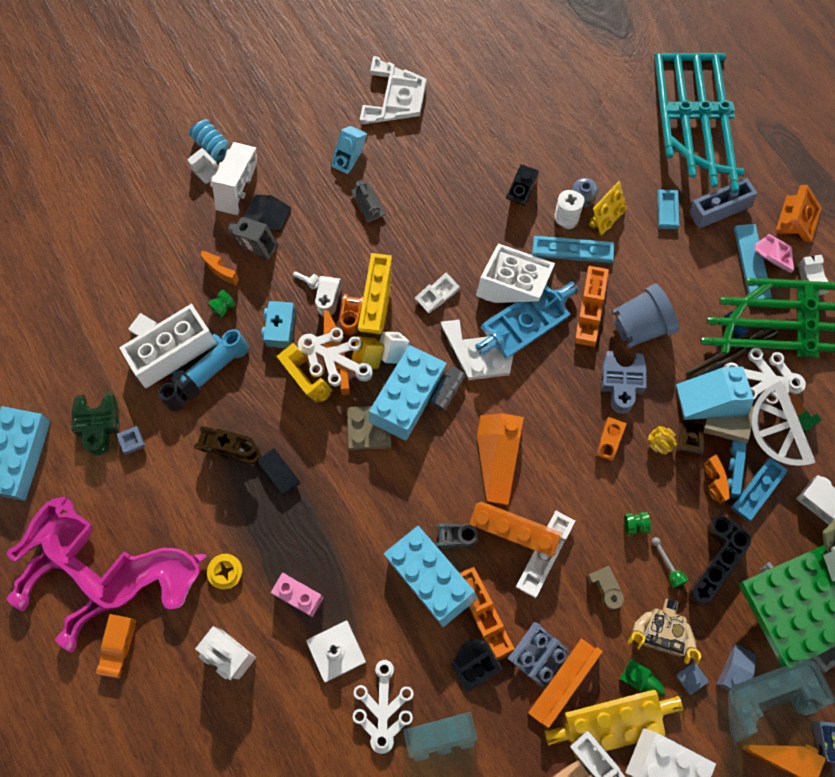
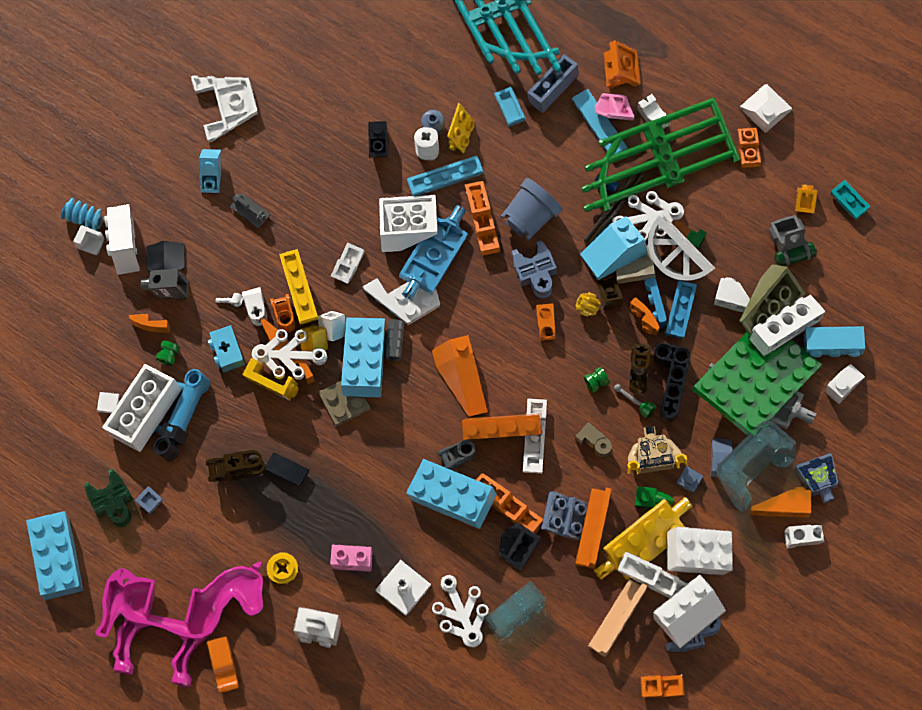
camera: 25 degrees left, 0 degrees up
(691, 531) = (639, 367): none -> dark brown piece

